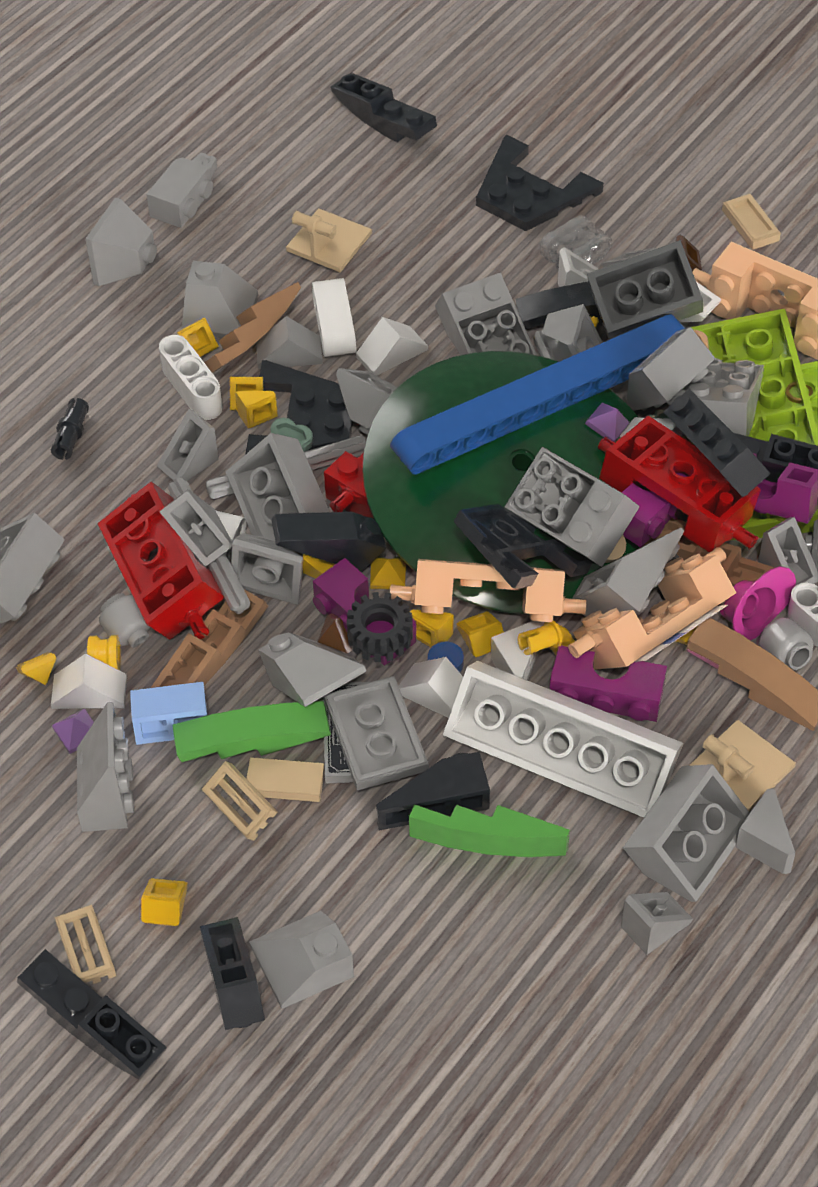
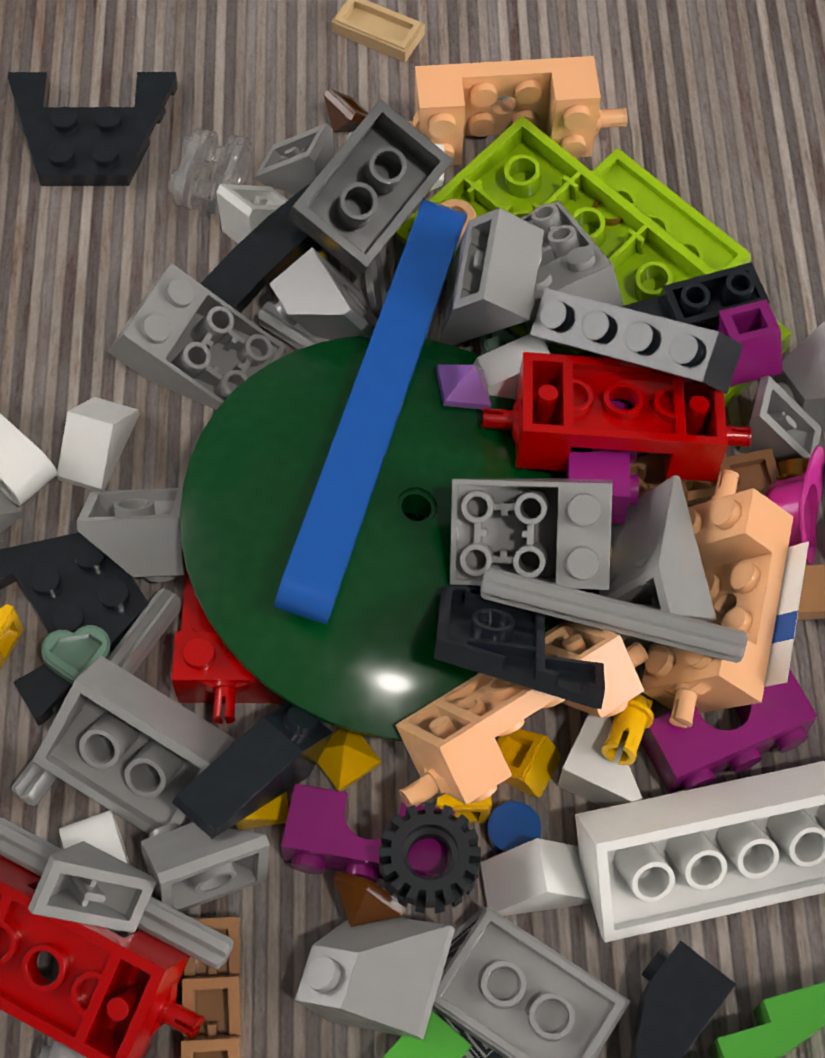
camera: 40 degrees left, 10 degrees up
(574, 565) = (614, 615): none -> light grey axle

